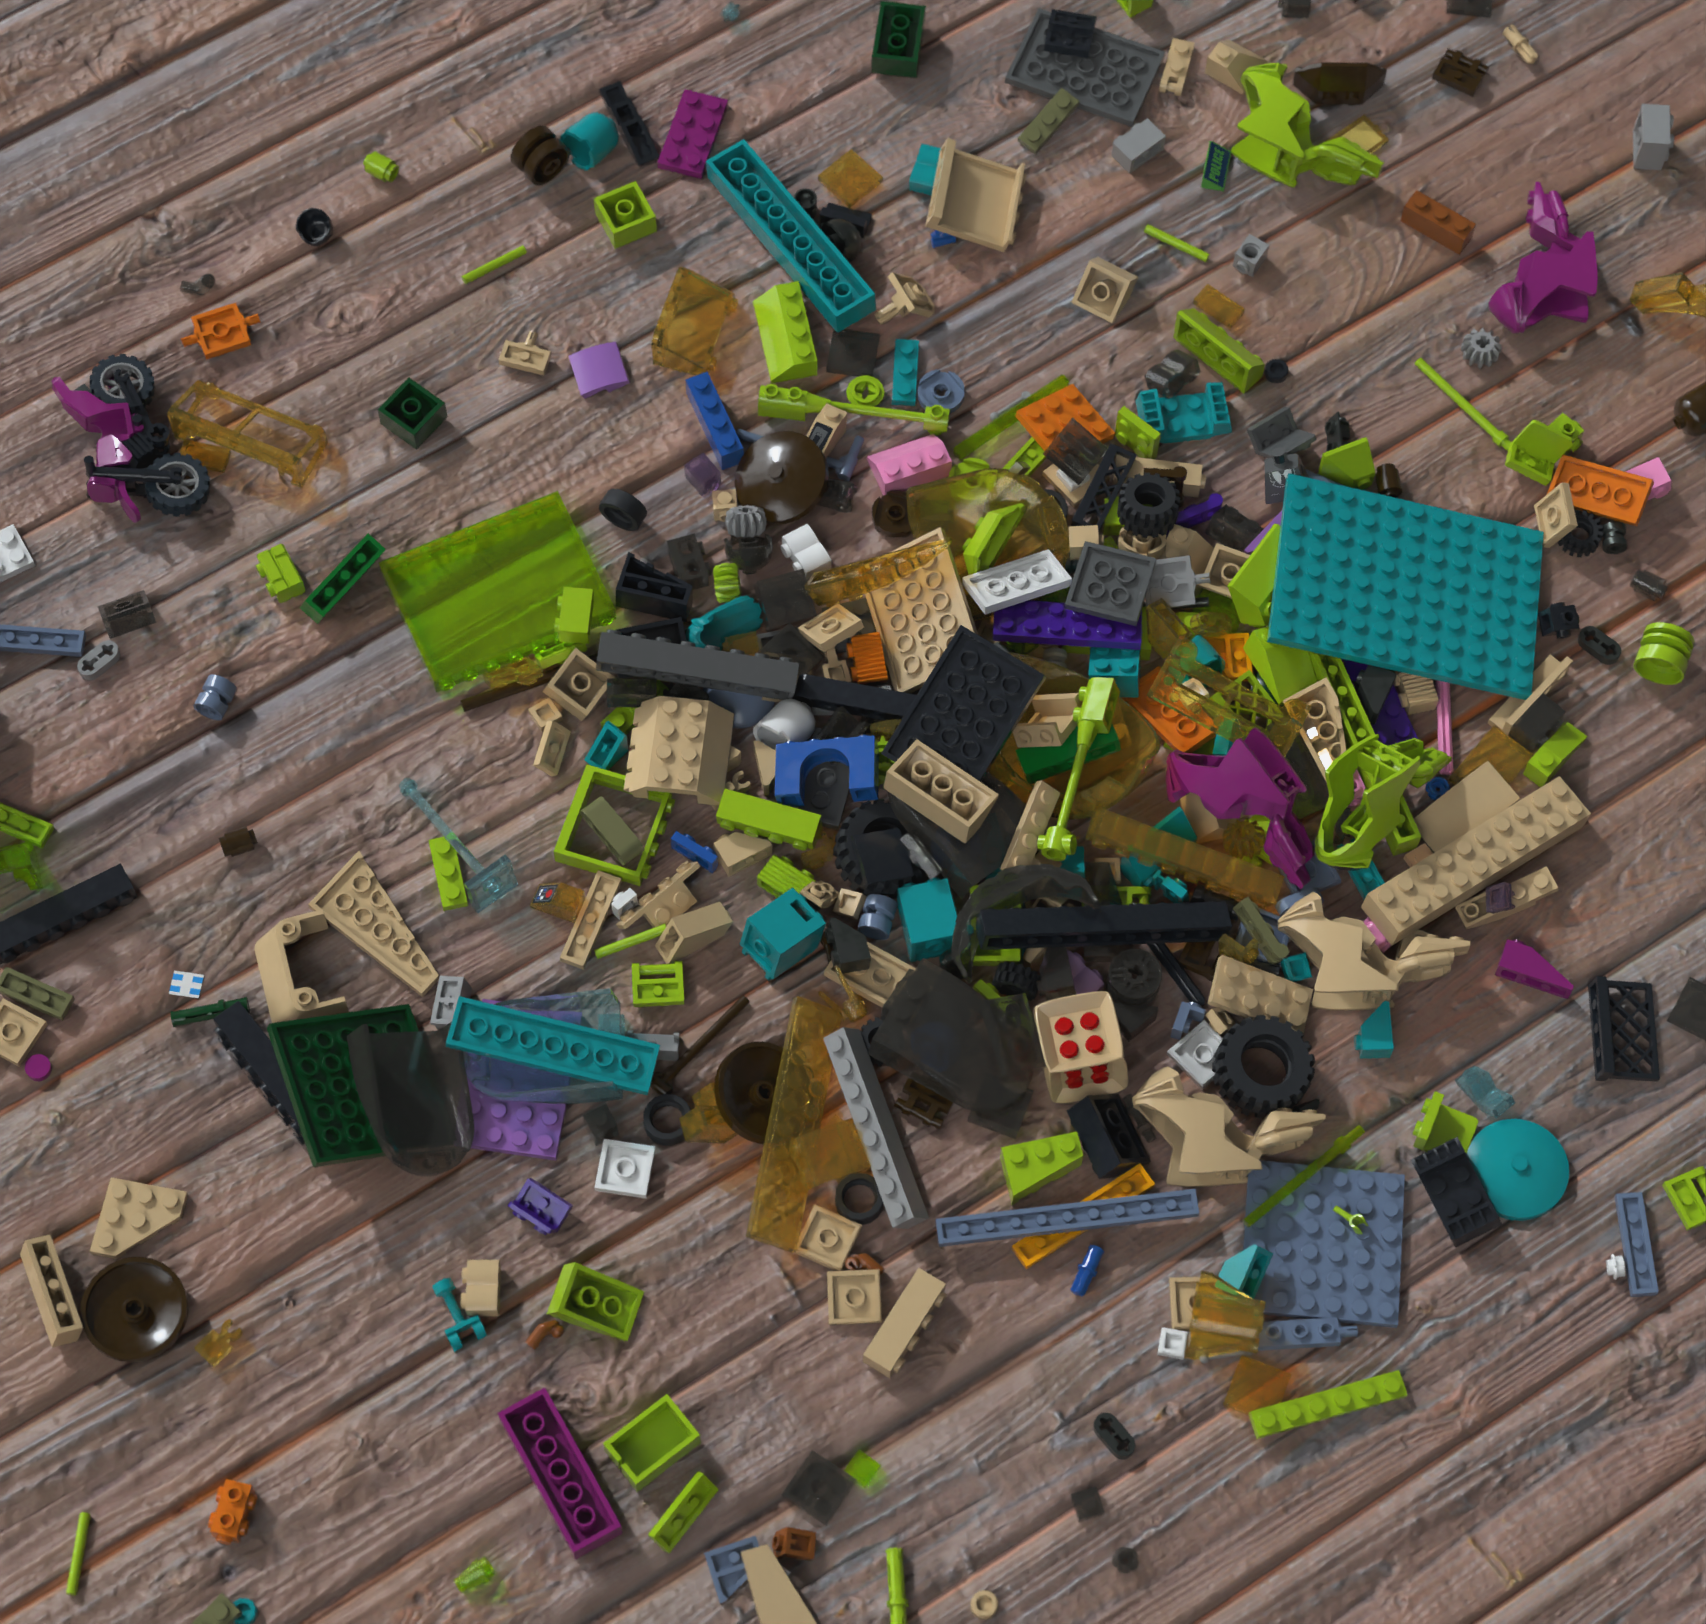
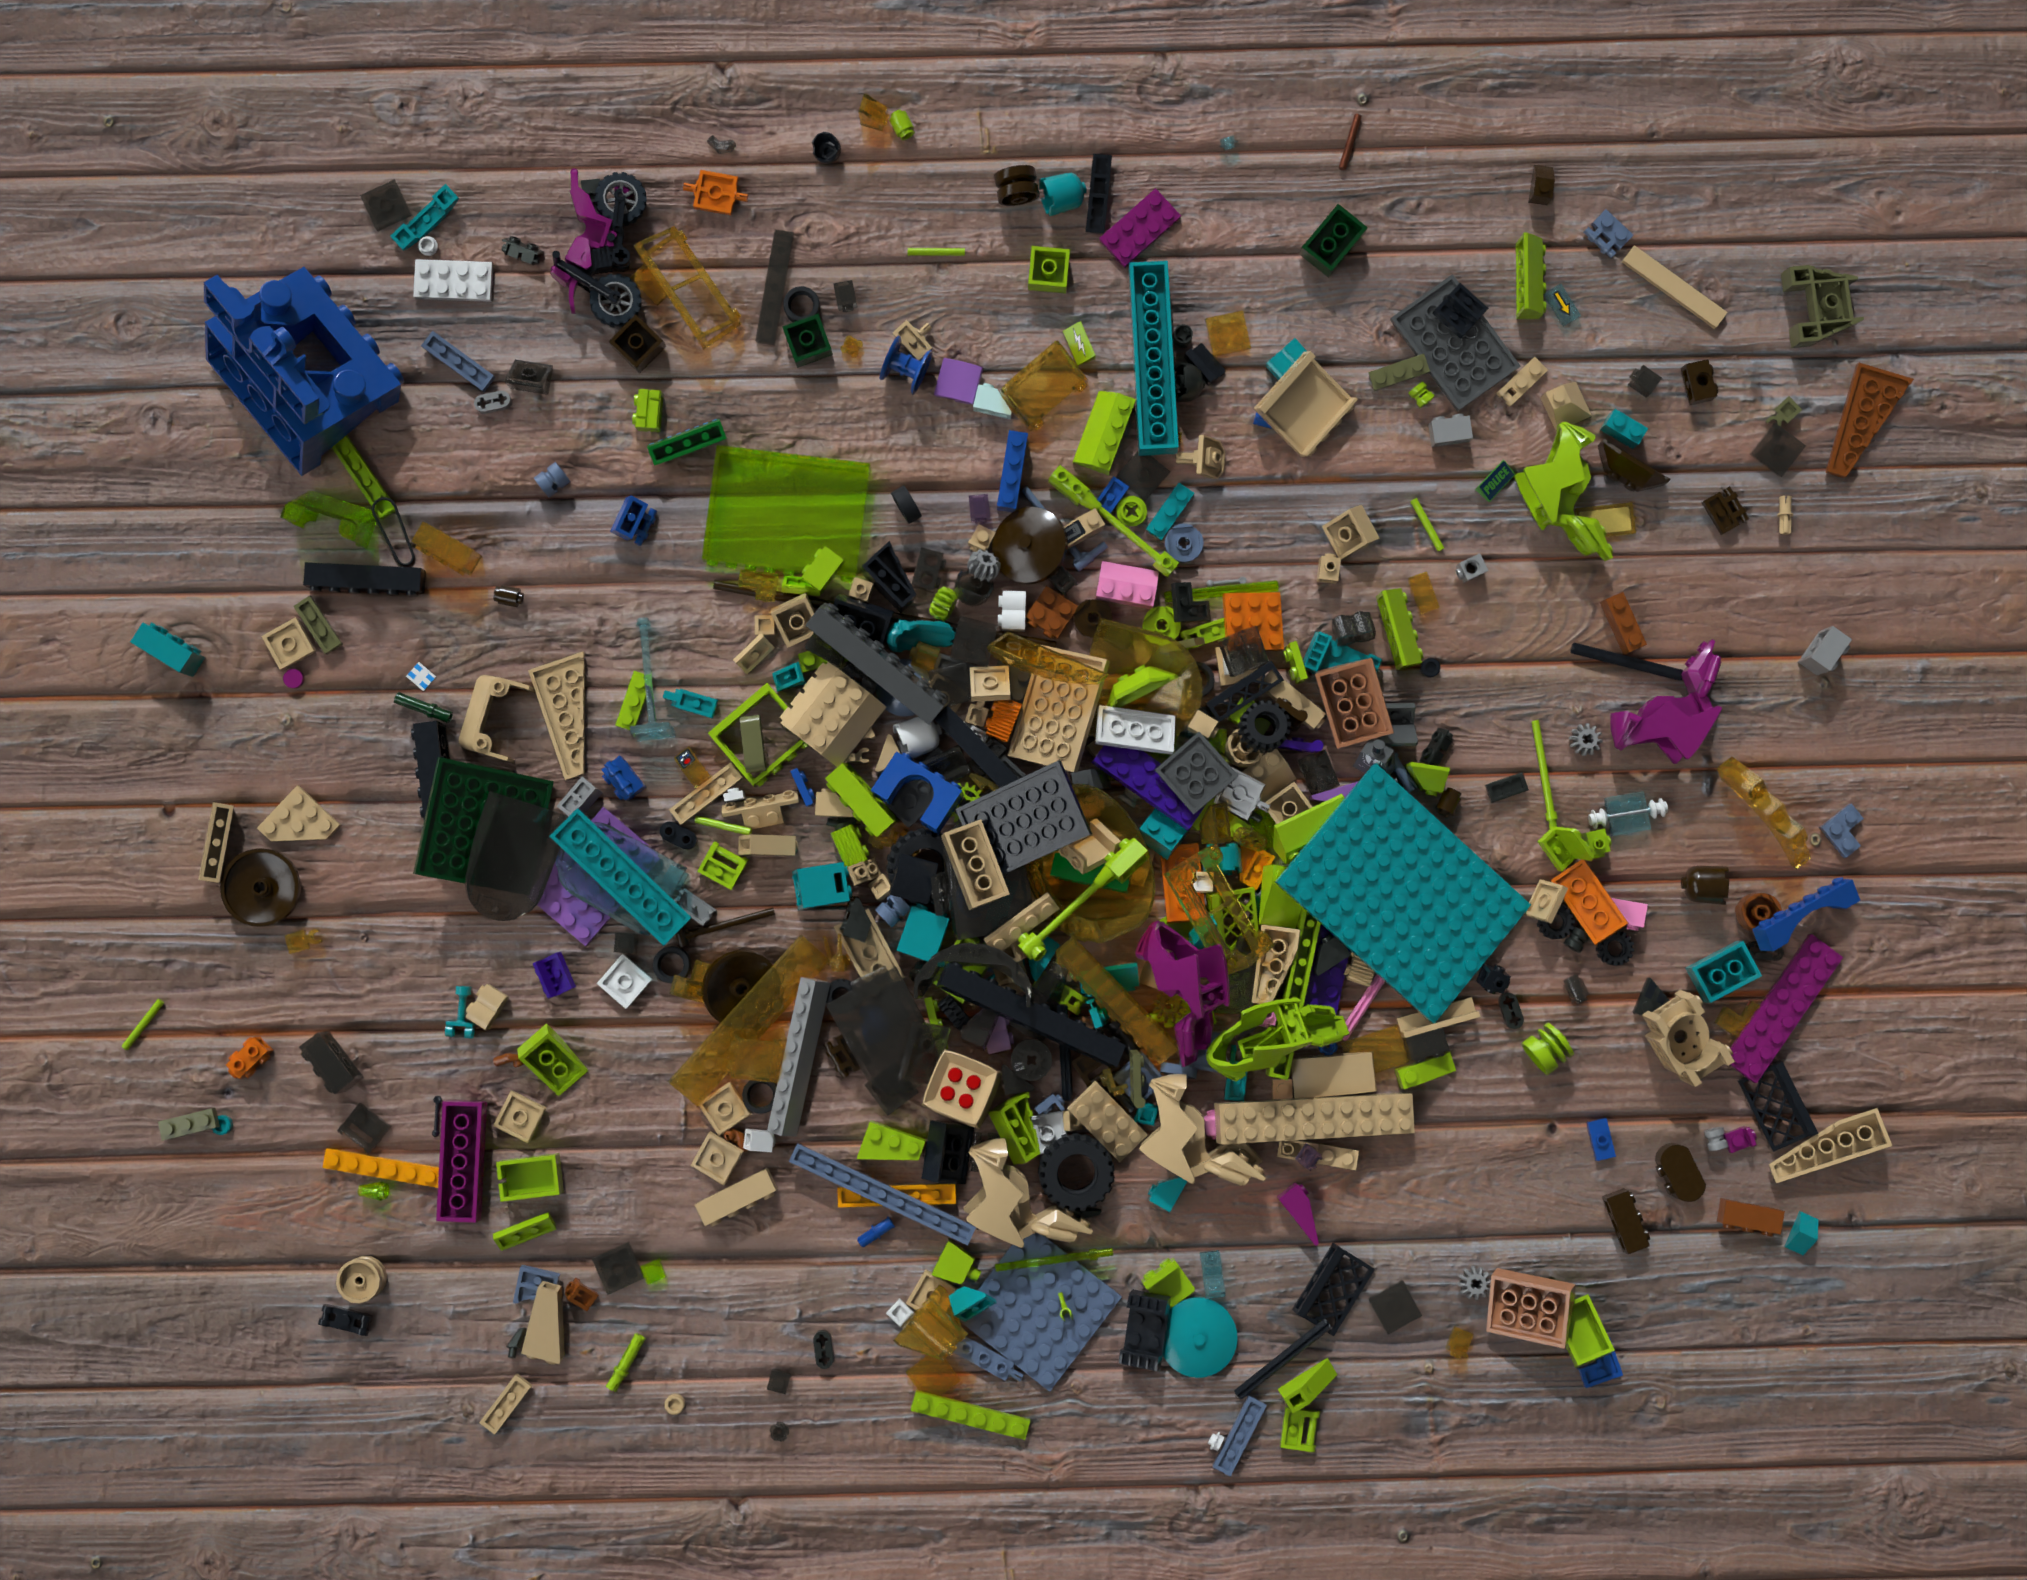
camera: 30 degrees right, 20 degrees up
(30, 496) = (529, 251): none -> pearl dark grey hinge
(69, 837) = (384, 534): none -> black piece
(138, 828) = (446, 549): none -> clear yellow brick
(227, 513) = (637, 343): none -> dark brown brick
(327, 687) = (629, 517): none -> blue brick
(336, 1452) = (330, 1062): none -> clear smoke brick
(342, 387) = (774, 287): none -> clear smoke tile
(344, 170) = (873, 113): none -> clear yellow slope
(376, 372) = (800, 290): none -> black tyre
(421, 1504) = (367, 1122): none -> clear smoke plate
(425, 352) = (845, 296): none -> clear smoke brick
(459, 392) = (849, 340): none -> clear yellow plate
(468, 1544) = (381, 1167): none -> light orange plate
(486, 955) = (623, 778): none -> blue brick
(487, 1430) = (437, 1099): none -> black hinge
(514, 836) = (692, 702): none -> teal hinge
(534, 376) = (905, 364): none -> blue piece
(586, 980) = (678, 835): none -> black plate
(596, 1388) = (520, 1116): none -> tan plate
(628, 615) = (861, 590): none -> tan brick
(648, 369) = (990, 402): none -> light aqua slope
(704, 265) = (1079, 344): none -> lime slope
(758, 865) = (841, 822): none -> pearl dark grey bar
(835, 384) = (1112, 494): none -> blue plate
(848, 534) = (1051, 613): none -> dark orange plate
(889, 1246) = (759, 1140): none -> white brick
(985, 447) = (1184, 607): none -> pearl dark grey plate
(1085, 129) = (1418, 391): none -> lime wheel
(1107, 335) = (1328, 569): none -> tan brick
(1159, 1050) = (1015, 1124): none -> lime wedge
(1199, 1249) = (955, 1264): none -> lime torso
(1224, 433) = (1354, 702): none -> nougat slope
(1306, 50) = (1624, 429): none -> teal brick
(1436, 436) = (1506, 787): none -> pearl dark grey plate
(1467, 256) = (1626, 661): none -> black axle
(1575, 391) = (1627, 813): none -> clear light blue plate
(1623, 1134) = (1282, 1359): none -> black axle
(1658, 536) = (1625, 954): none -> black tyre
(1669, 1145) = (1307, 1386): none -> lime slope

